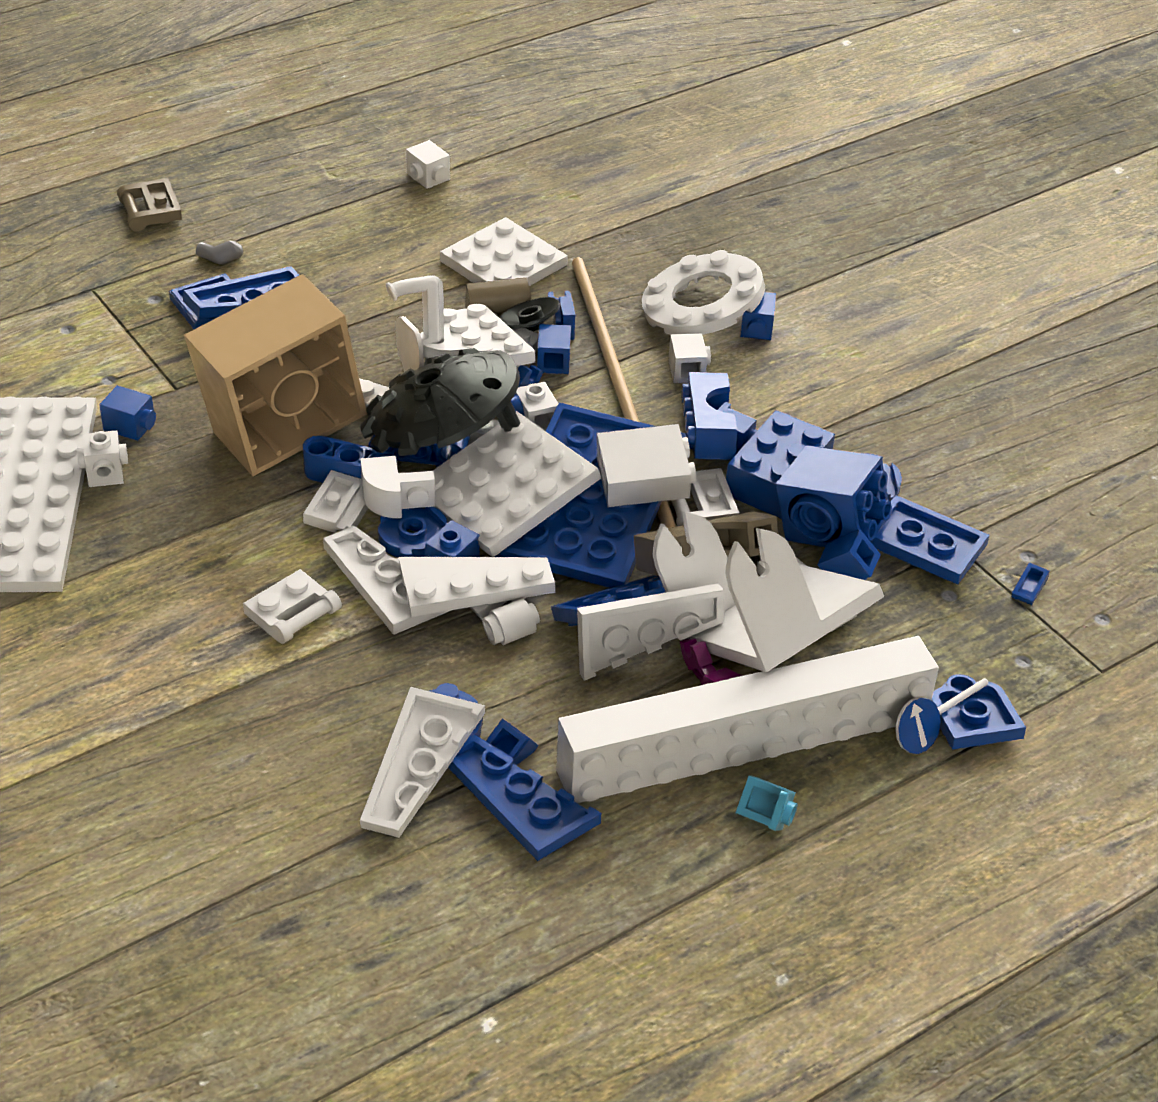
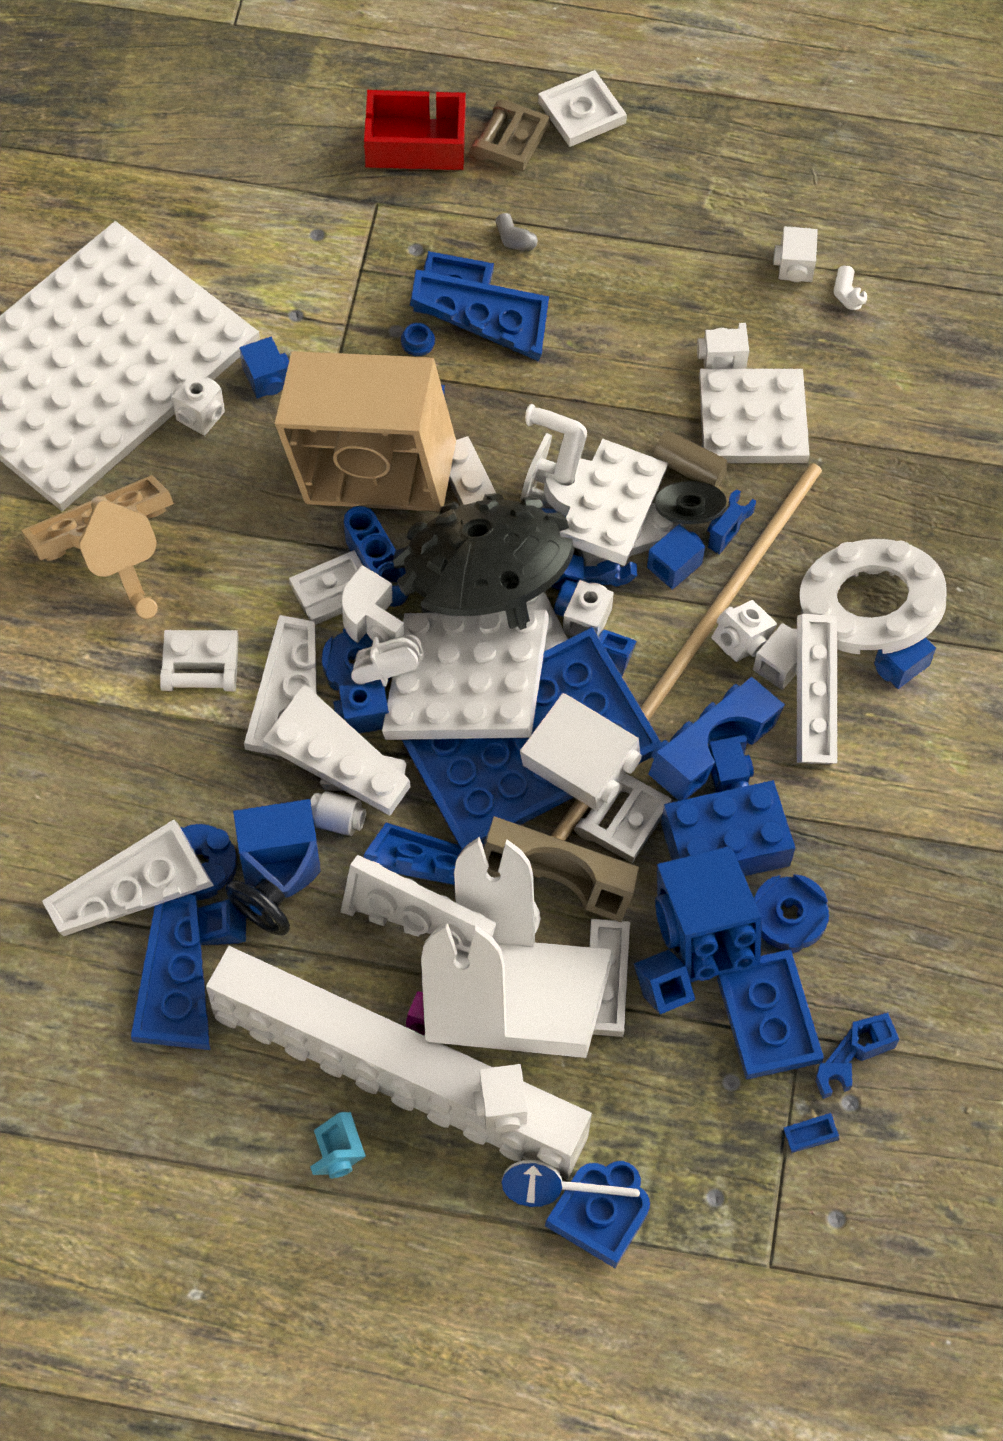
camera: 45 degrees right, 20 degrees up
(66, 242) = (404, 135): none -> red piece
(141, 536) = (110, 534): none -> tan plate
(184, 165) = (582, 108): none -> white plate
(444, 230) = (724, 348): none -> white brick
(444, 501) = (387, 659): none -> white arm
(478, 170) = (845, 292): none -> white arm
(506, 667) = (276, 859): none -> blue piece
(652, 345) = (743, 630): none -> white brick
(736, 354) = (816, 689): none -> white plate
(862, 657) = (501, 1098): none -> white brick
(994, 518) = (838, 1064): none -> blue piece

